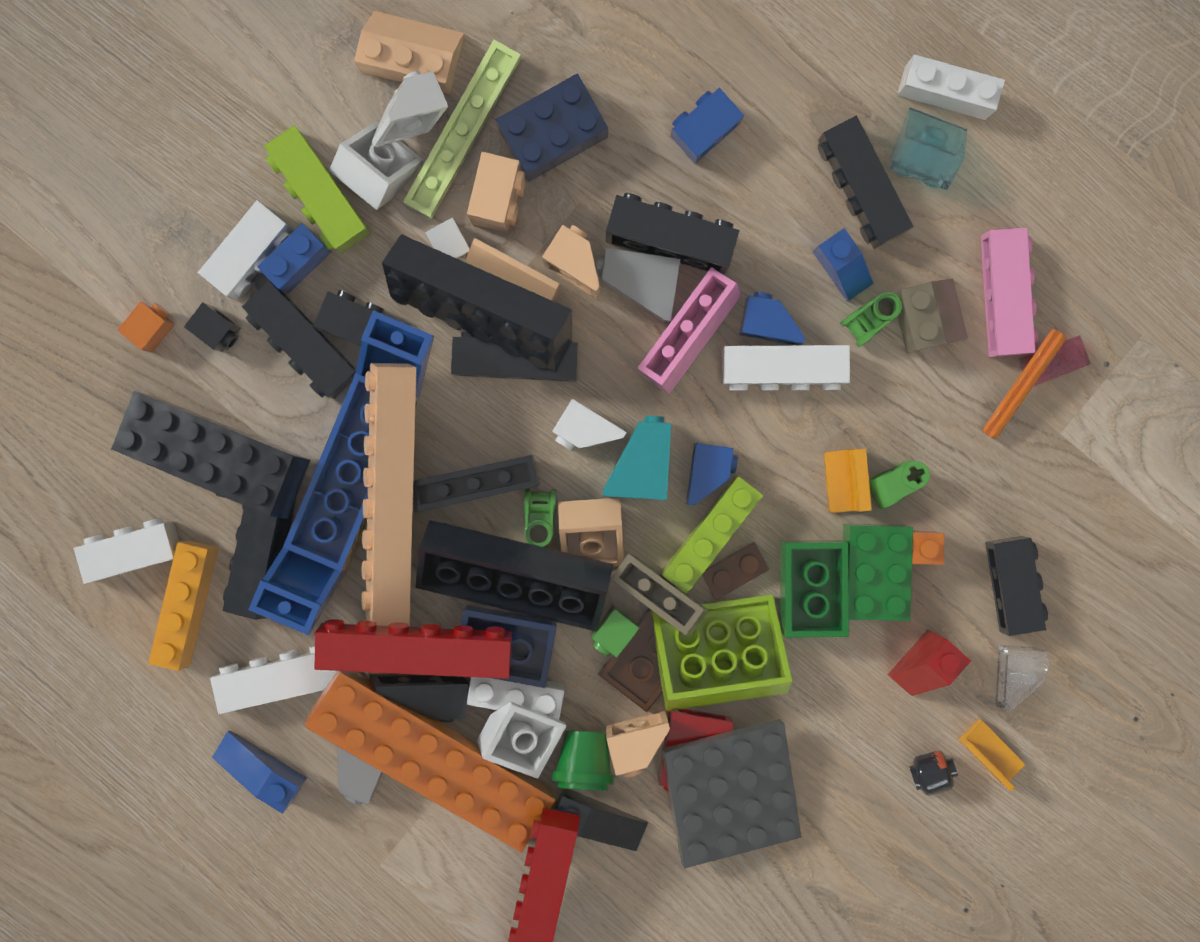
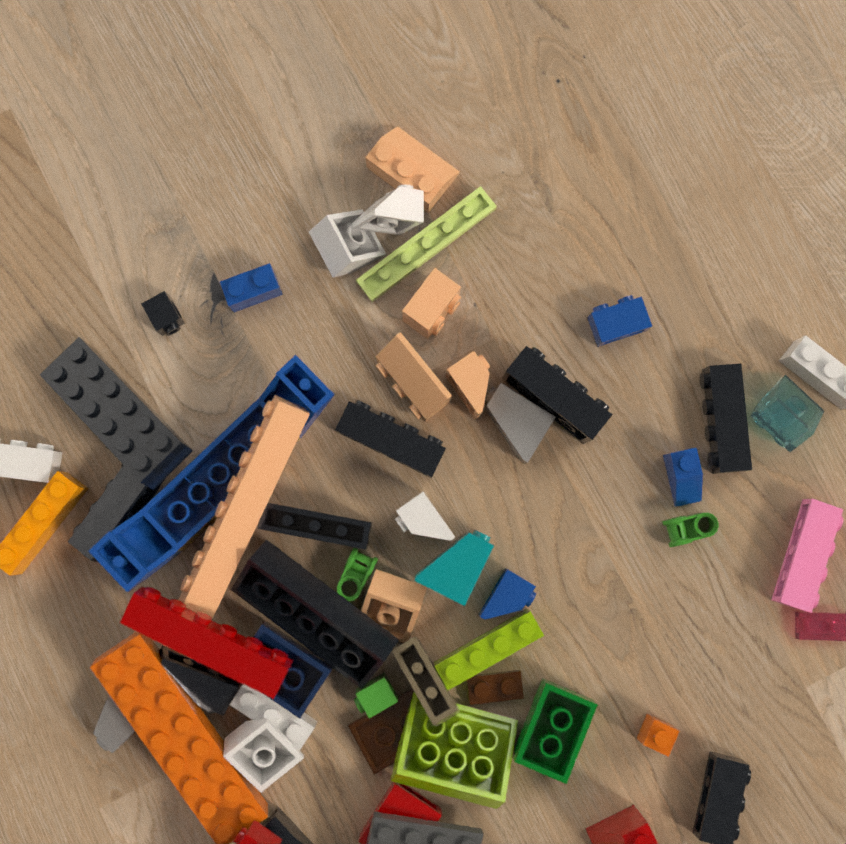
camera: 25 degrees right, 5 degrees down
(146, 326) = (112, 290): orange brick -> none
(245, 247) = (219, 262): white brick -> none
(259, 772) = (36, 687): blue slope -> none
(268, 681) = (78, 614): white brick -> none
(300, 340) = (227, 353): black brick -> none
(316, 189) = (293, 243): lime brick -> none
(344, 317) = (270, 350): black brick -> none
(449, 240) = (377, 328): white brick -> none
(478, 302) = (381, 384): black brick -> none
(552, 127) = (498, 272): dark blue brick -> none
(584, 762) = (304, 795): green piece -> none
(635, 742) = (355, 797): light nougat slope -> none
(690, 330) = (539, 477): bright pink brick -> none
(769, 320) = (606, 495): blue slope -> none
(785, 366) = (604, 537): white brick -> none
(847, 480) = (617, 652): light orange panel -> none
(879, 571) = (613, 739): green brick -> none
(893, 484) = (652, 671): bright green piece -> none
(930, 315) = (737, 546): dark tan slope -> none
(1024, 383) = (792, 634): orange axle -> none

